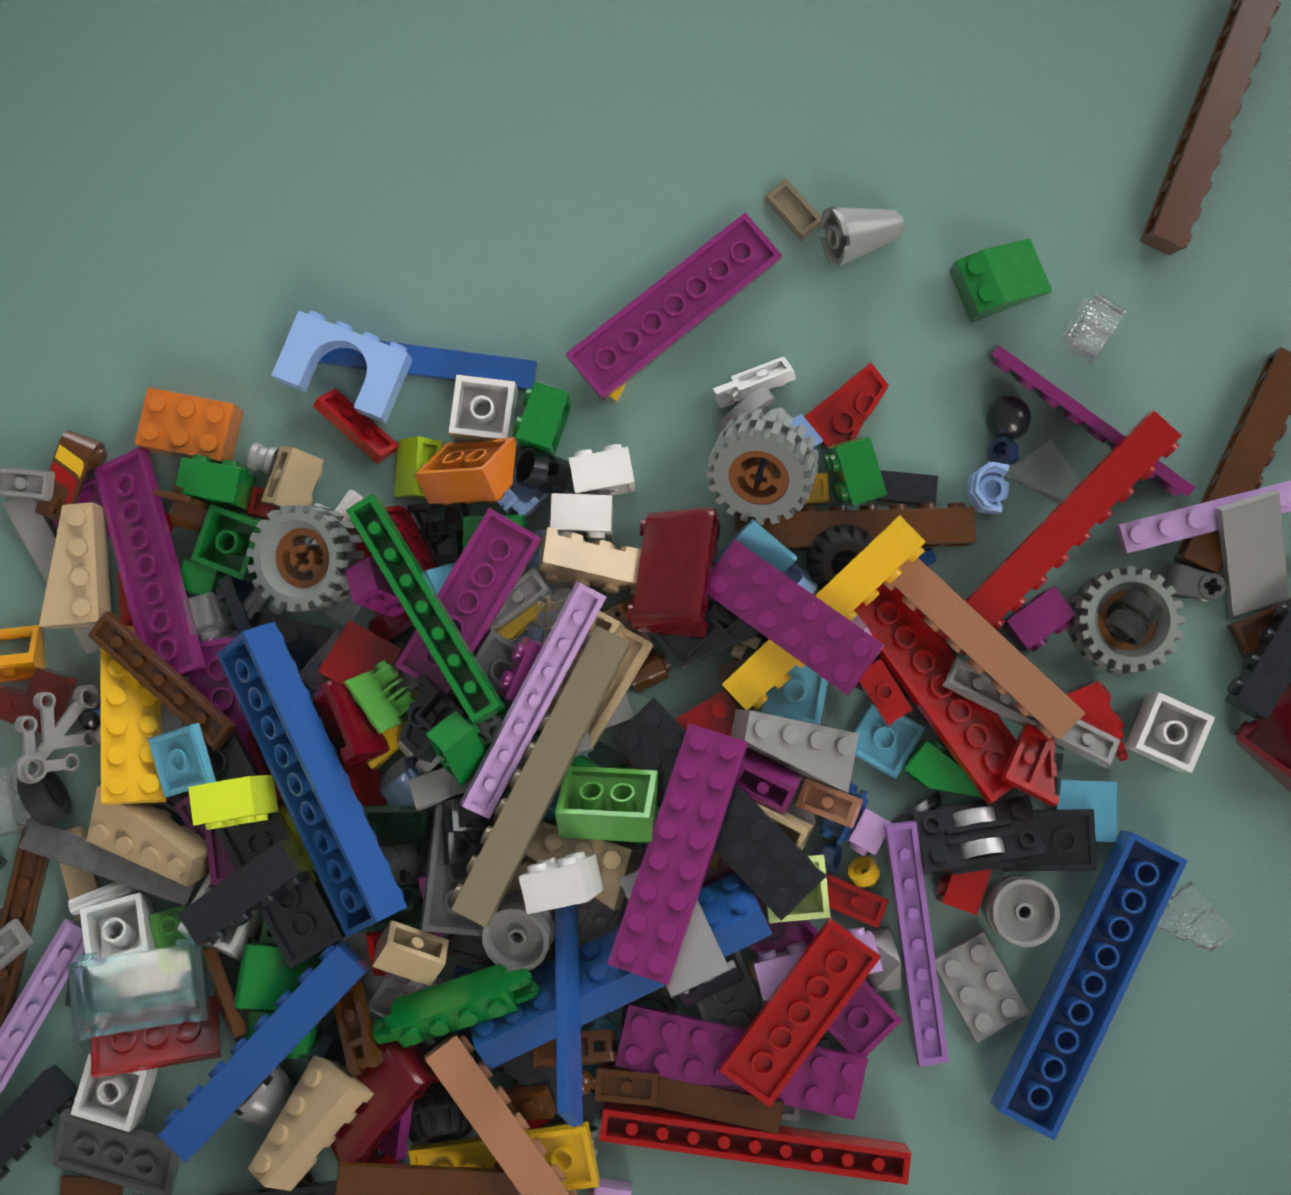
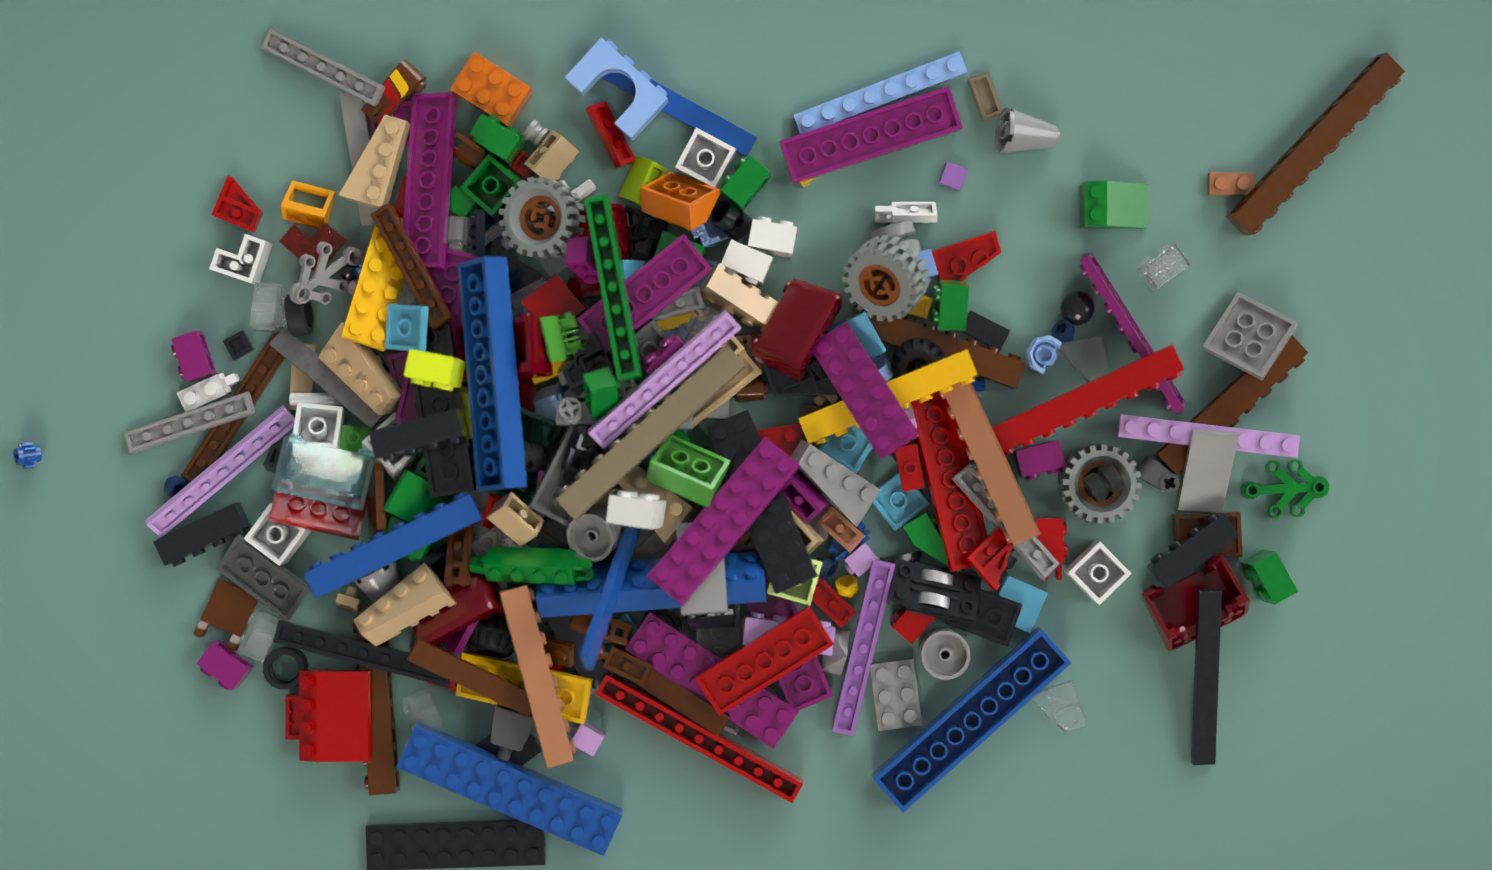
camera: 10 degrees right, 5 degrees up
(239, 1138) = (349, 600): none -> tan tile
(423, 780) = (569, 405): none -> light grey wheel
(668, 251) = (881, 93): none -> light blue plate
(793, 318) = (953, 176): none -> medium lavender tile
(1128, 200) = (1230, 183): none -> nougat plate
(1234, 369) = (1250, 335): none -> light grey plate

